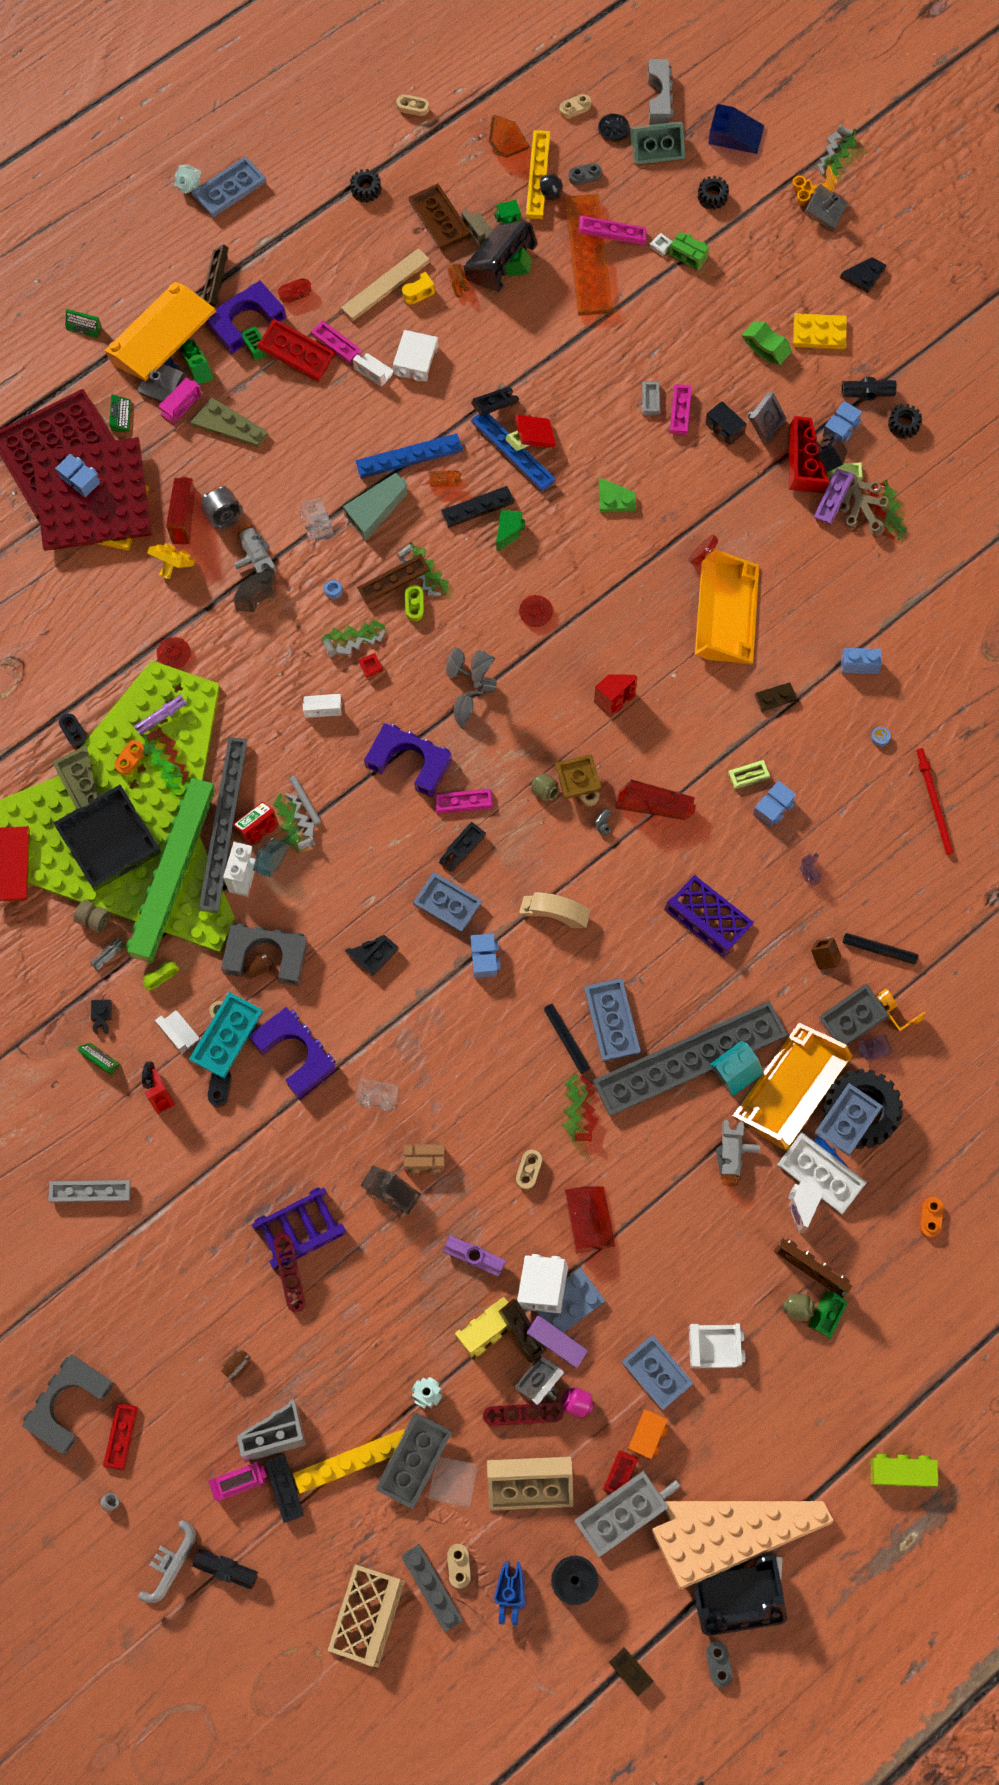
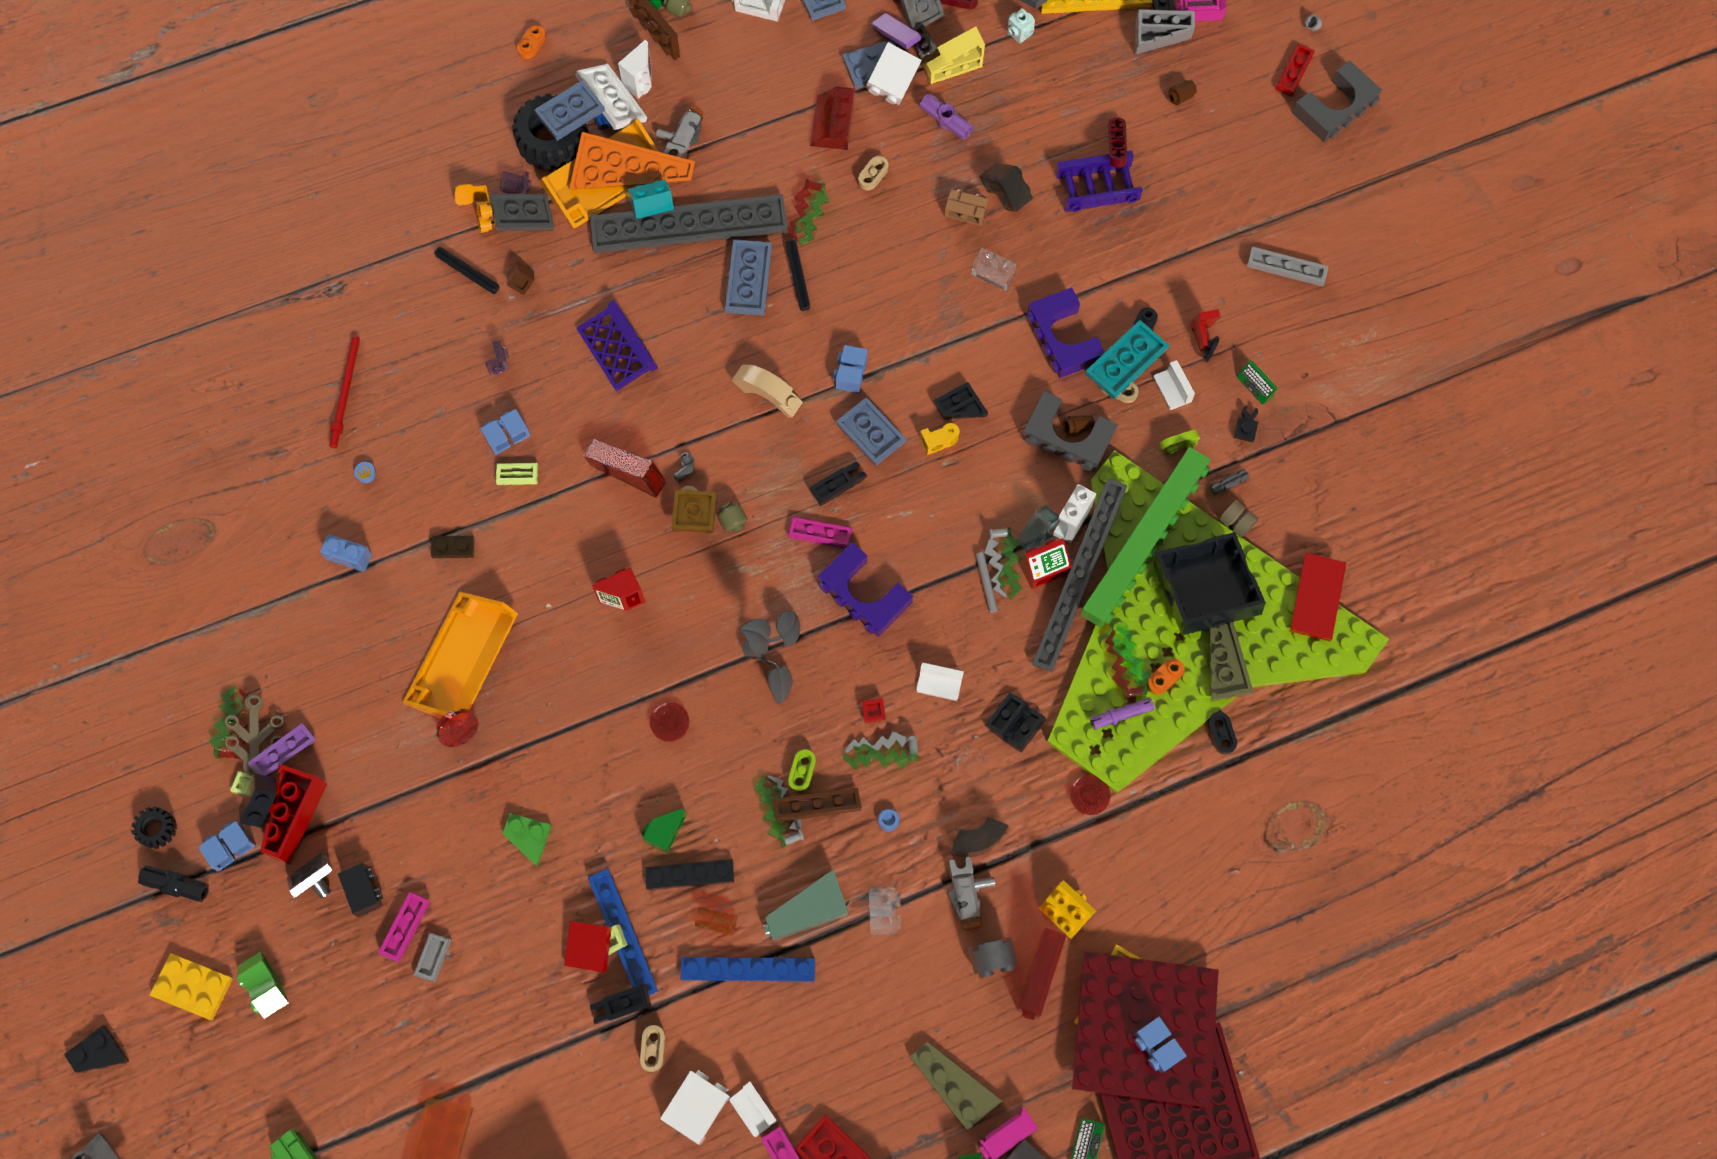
camera: 165 degrees left, 0 degrees up
(249, 691) = (1015, 722): none -> black slope
(382, 913) = (940, 438): none -> yellow leg
(461, 385) = (651, 1048): none -> tan plate
(775, 1094) = (614, 163): none -> orange wing

